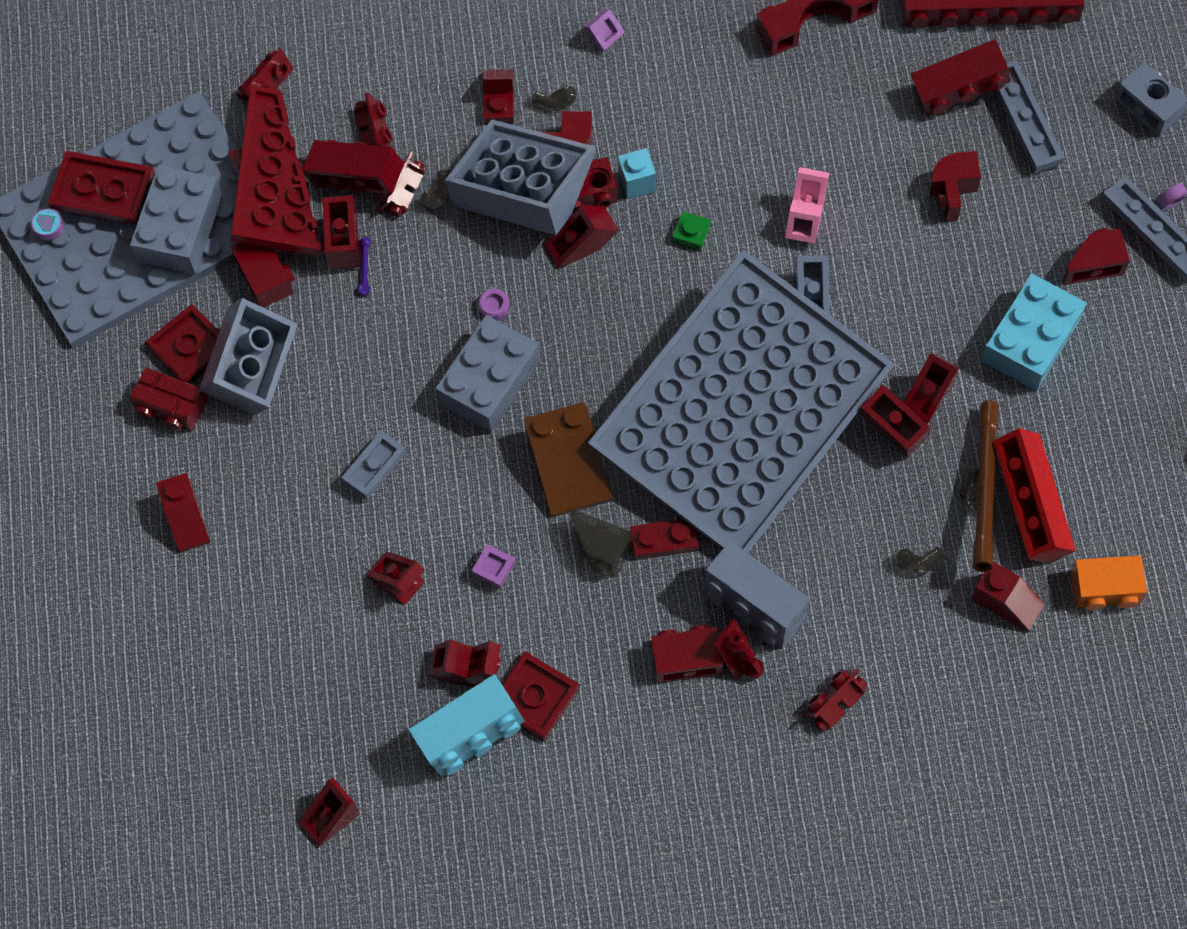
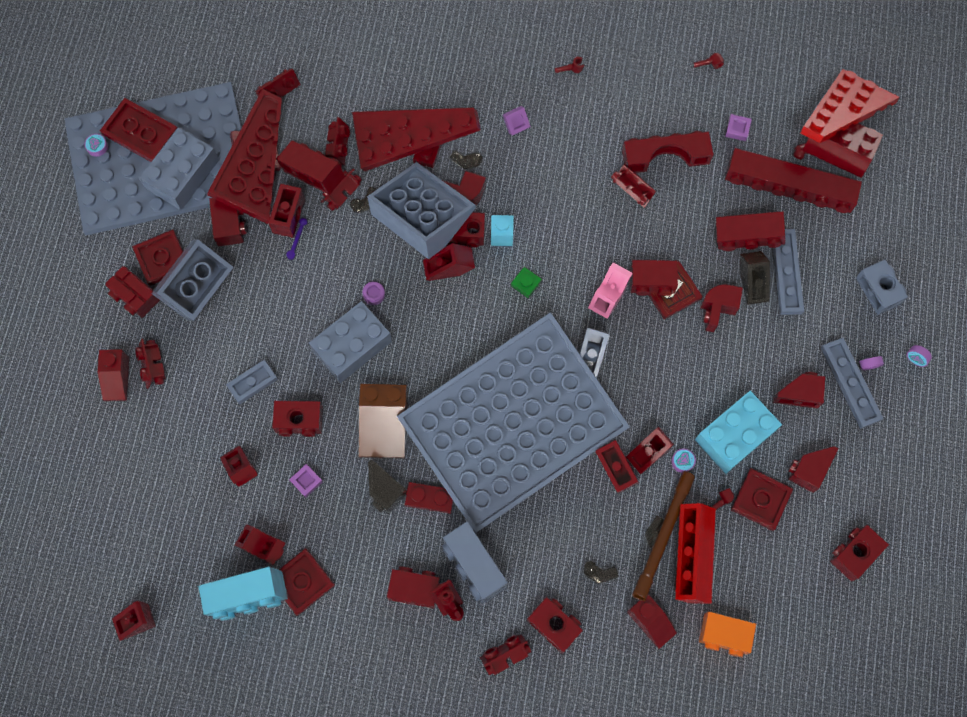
camera: 15 degrees right, 5 degrees up
(218, 473) = (147, 354): none -> dark red hinge
(456, 90) = (401, 133): none -> dark red wing
(462, 476) = (286, 411): none -> dark red brick
(788, 66) = (633, 185): none -> dark red hinge
(857, 172) = (653, 277): none -> dark red brick
(884, 184) = (685, 295): none -> dark red tile
(894, 657) = (561, 638): none -> dark red brick
(976, 389) = (683, 460): none -> tile
(987, 134) = (755, 277): none -> clear smoke slope
(1048, 417) = (726, 498): none -> dark red hand
(1093, 407) = (762, 499): none -> dark red tile
(1143, 348) = (812, 468): none -> dark red slope

